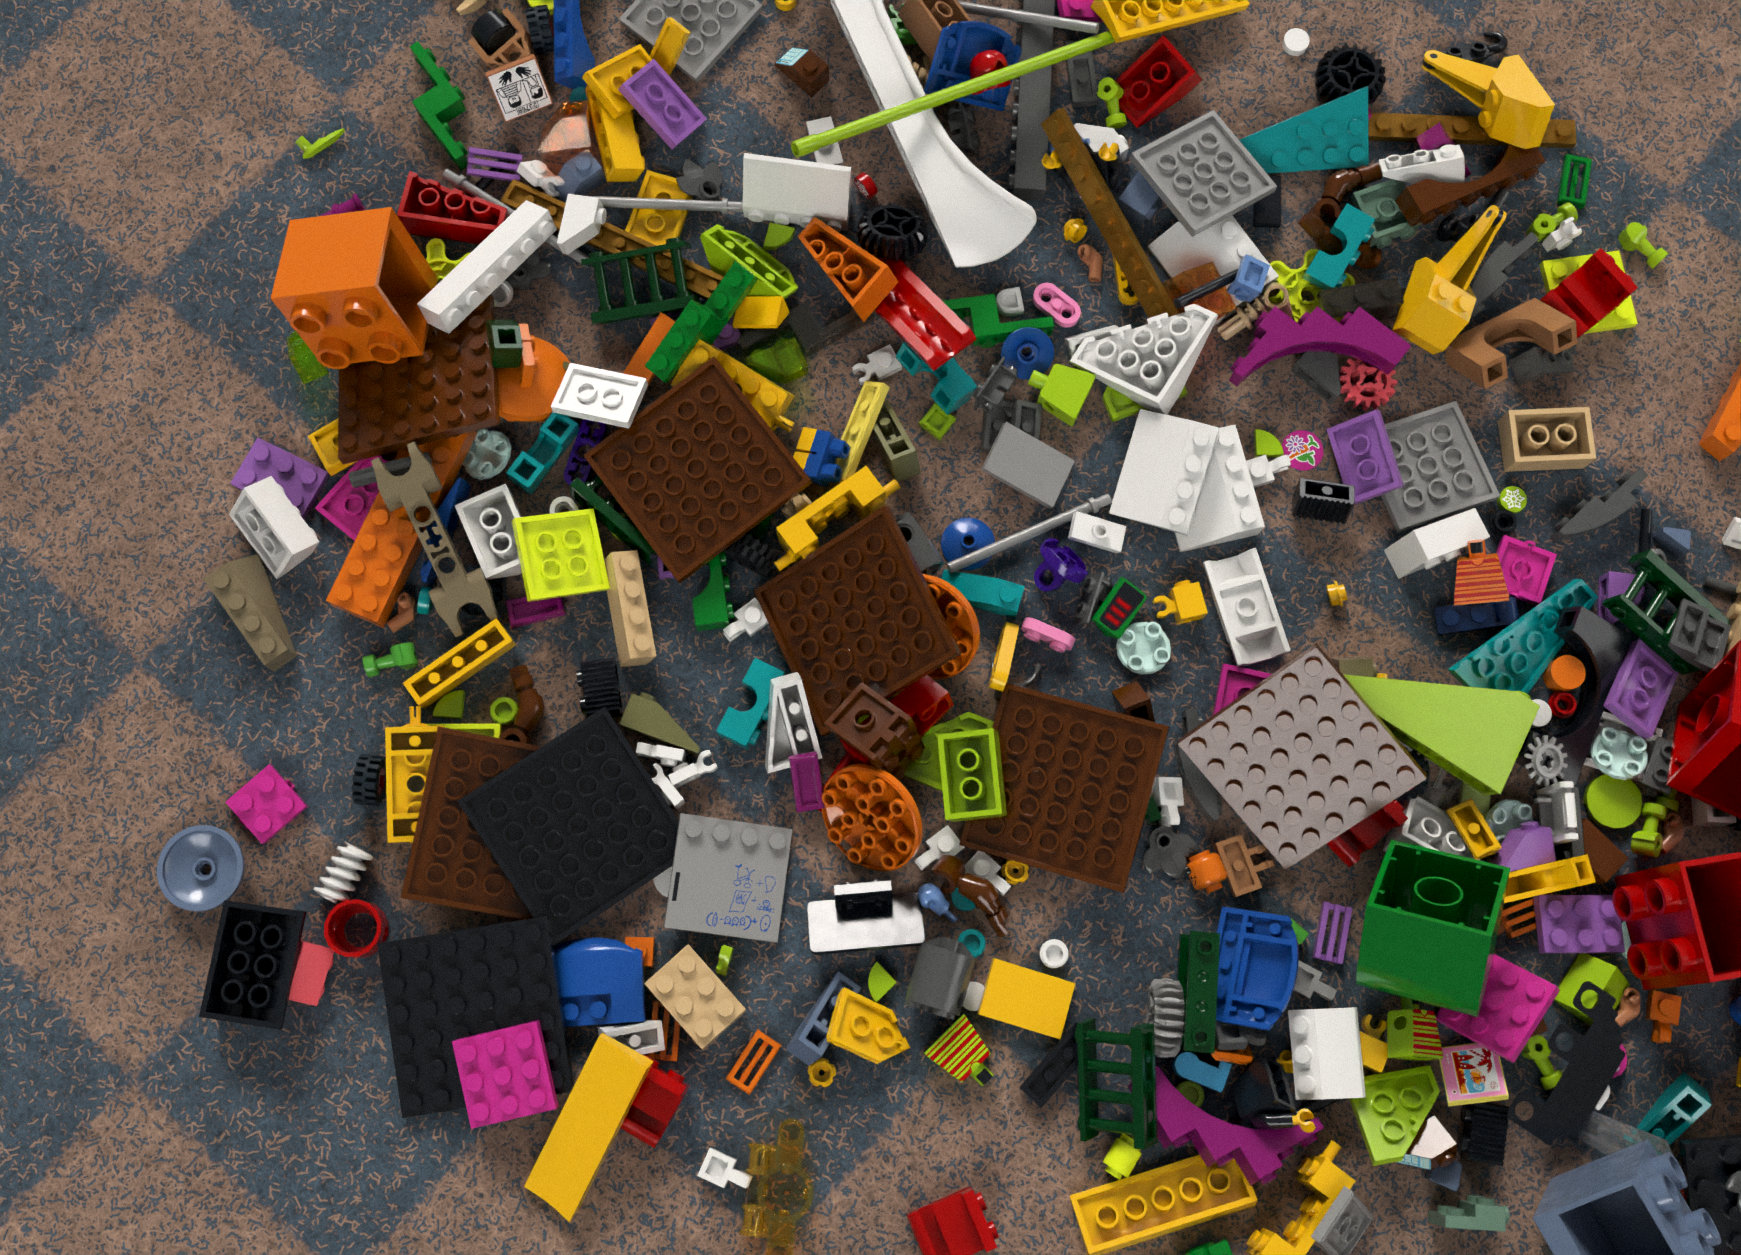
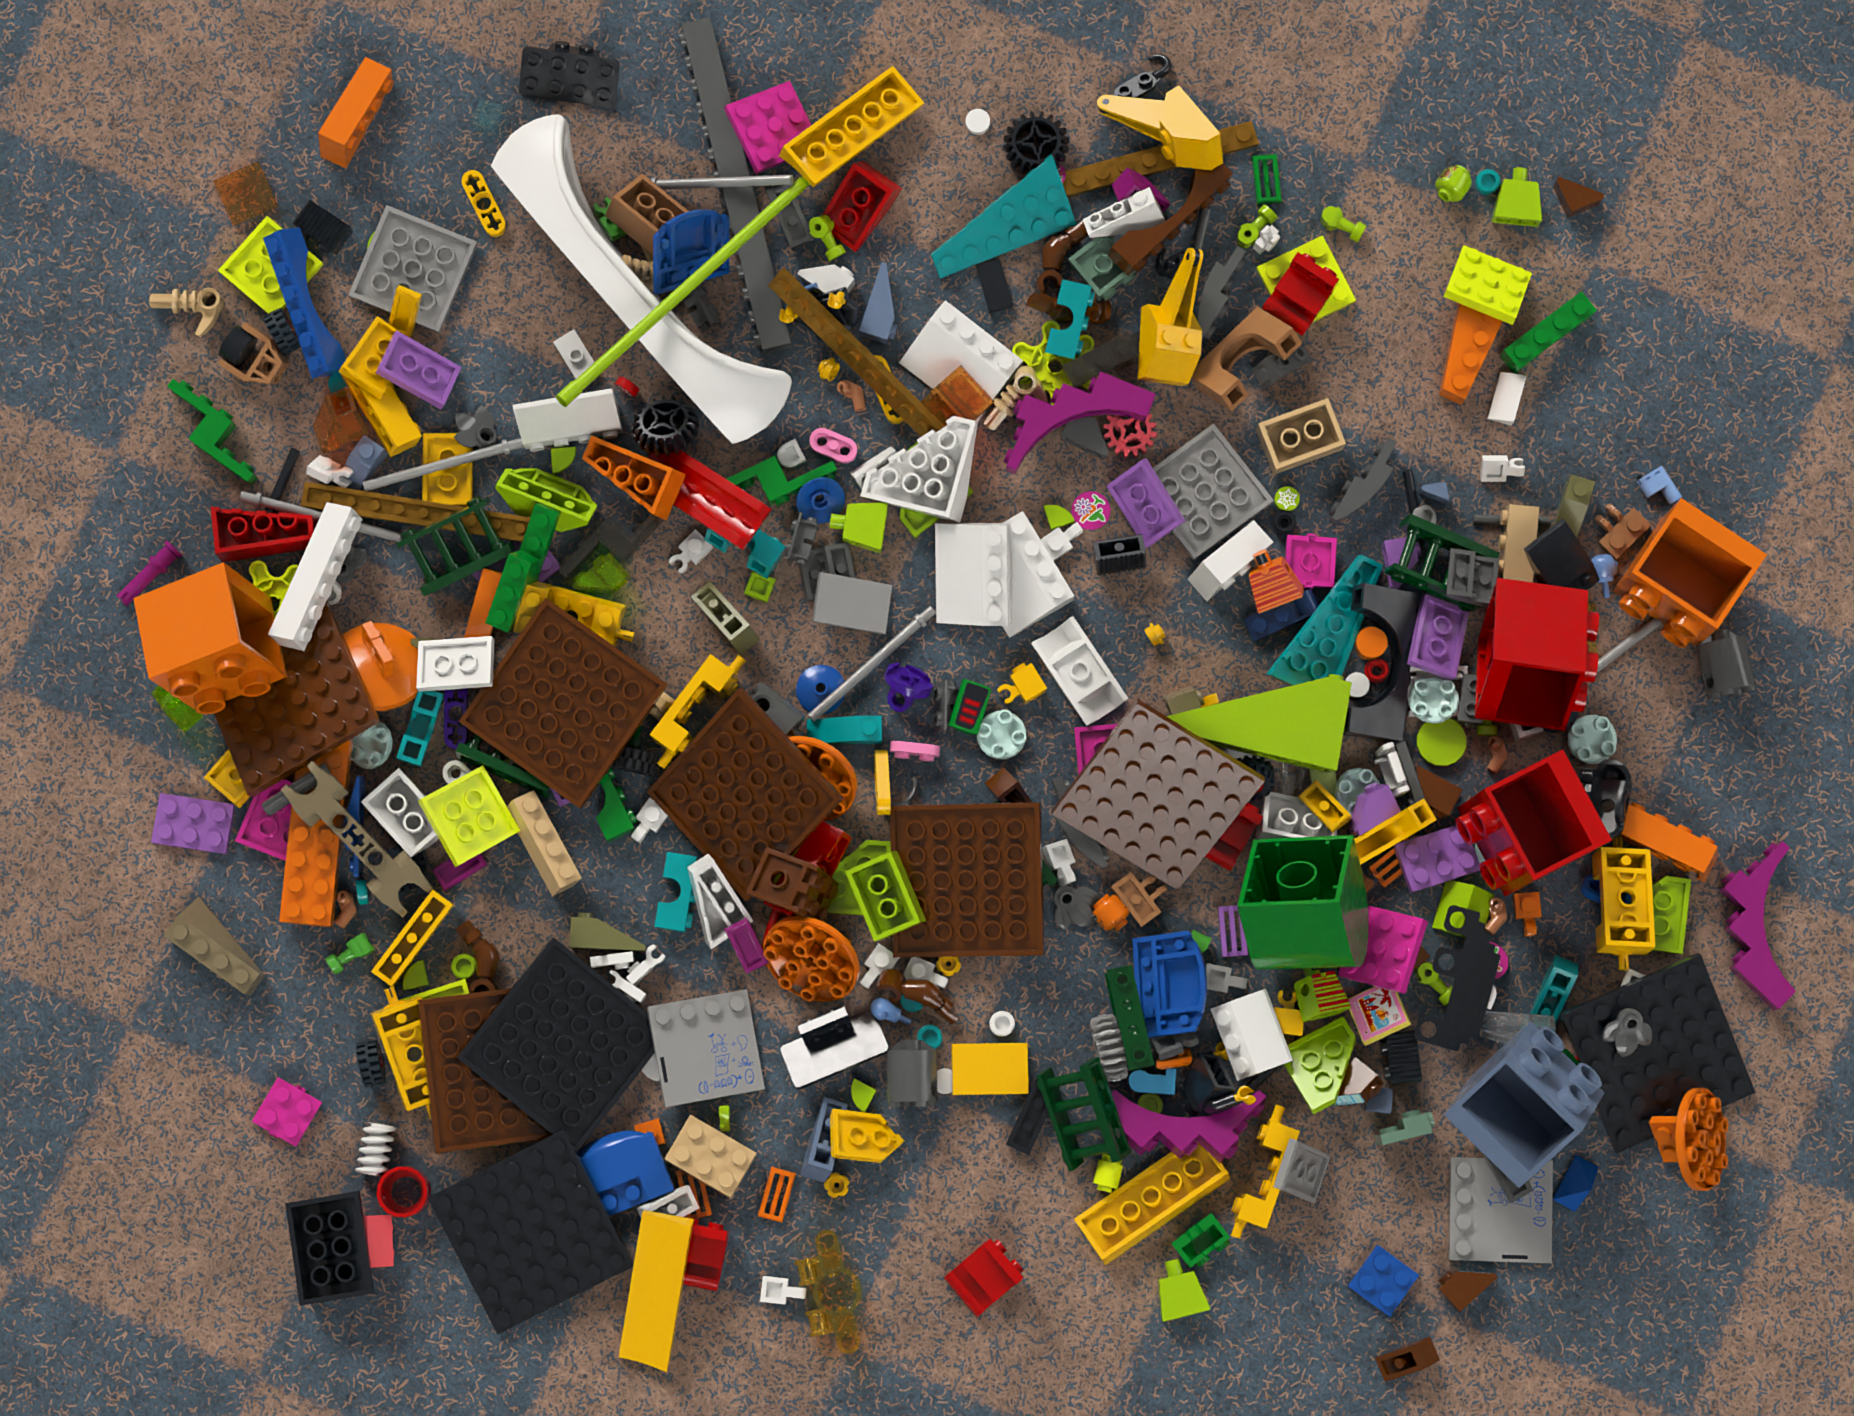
camera: 15 degrees left, 5 degrees up
(183, 864) = (235, 1180): sand blue dish -> none
(273, 526) = (206, 870): white slope -> none
(322, 143) = (110, 509): lime bar -> none
(494, 164) = (261, 477): medium lavender tile -> none
(504, 343) = (356, 644): dark green slope -> none
(505, 1074) = (573, 1270): dark pink plate -> none
(519, 88) = (281, 394): tile -> none
(580, 221) = (382, 506): white slope -> none
(600, 687) = (541, 920): black brick -> none
(761, 312) = (572, 540): yellow slope -> none
(804, 69) = (534, 291): reddish brown slope -> none
(818, 455) = (664, 654): blue hips -> none
(861, 424) = (692, 619): light yellow tile -> none
(961, 1052) = (948, 1131): torso -> none
(987, 62) = (702, 249): red hair -> none
(1097, 532) = (930, 644): white plate -> none
(1202, 173) = (927, 285): light grey plate -> none
(1205, 289) = (962, 395): black bar -> none
(1249, 279) = (996, 374): medium blue bracket -> none
(1555, 763) = (1377, 729): light grey gear -> none
(1648, 841) = (1478, 768): lime leg -> none

